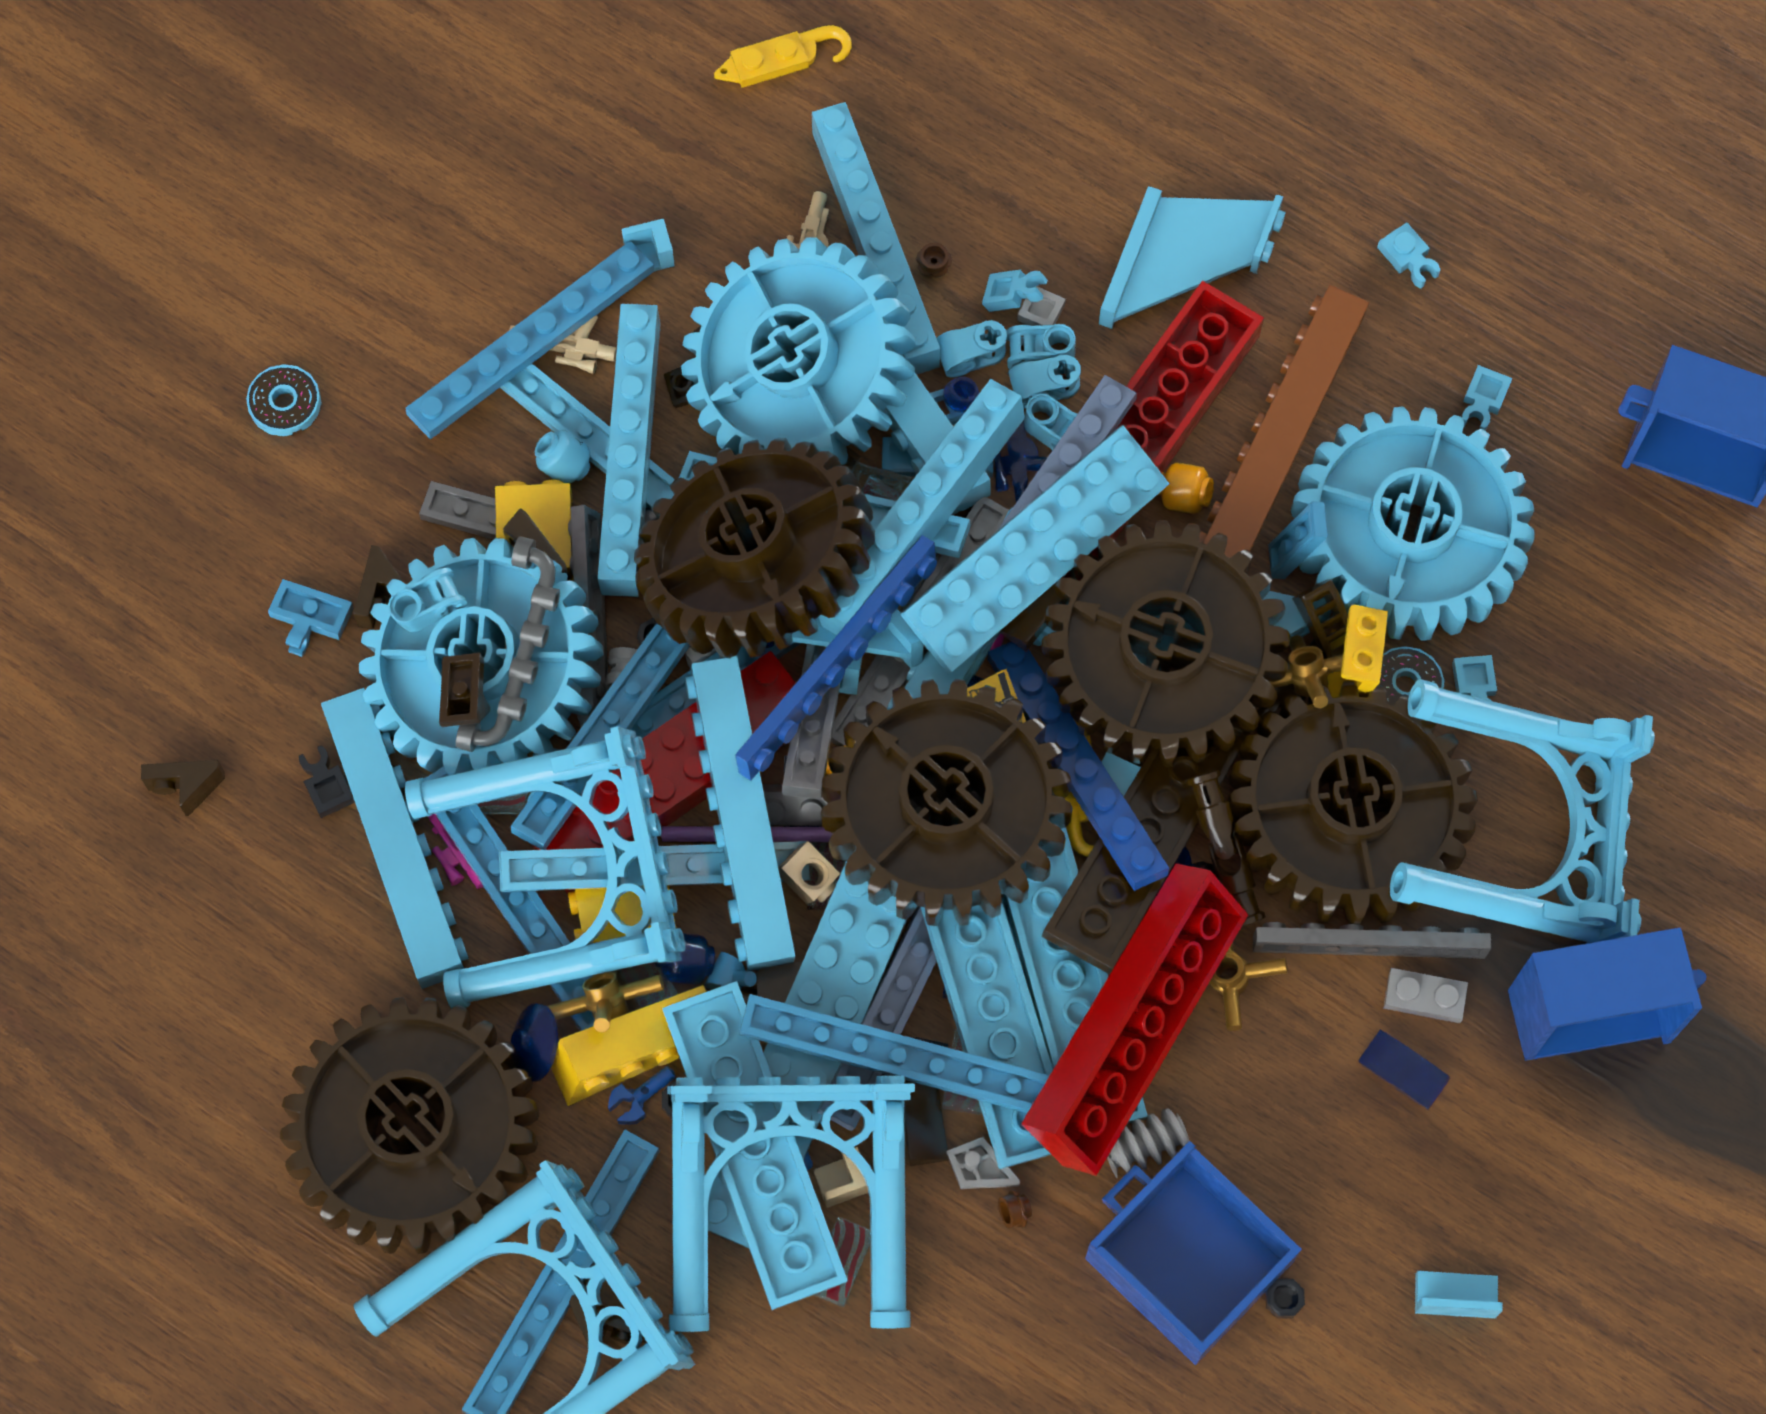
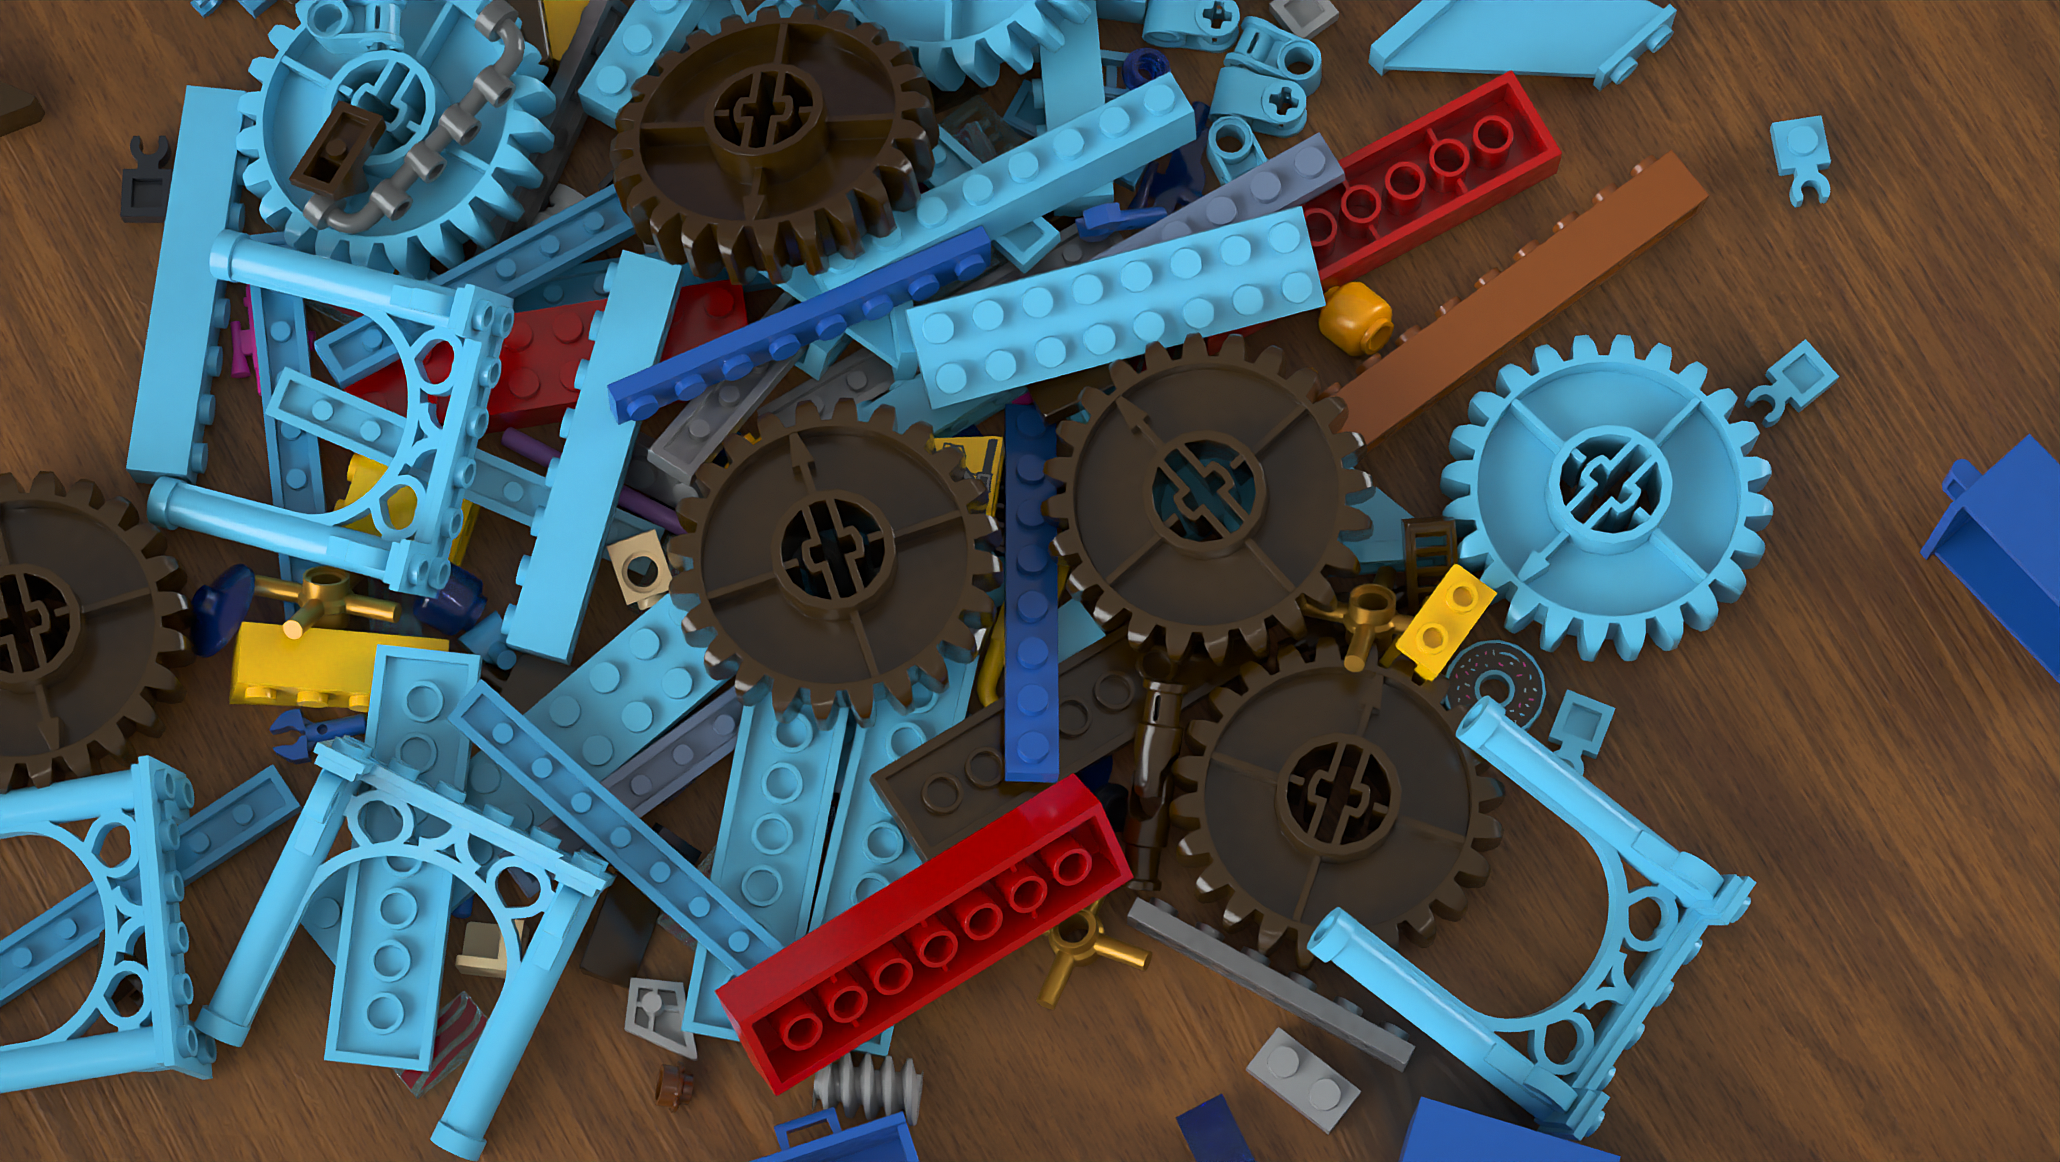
camera: 30 degrees right, 5 degrees up
(995, 495) = (1106, 218): none -> blue bar
(1298, 540) = (1446, 451): dark azure tile -> none

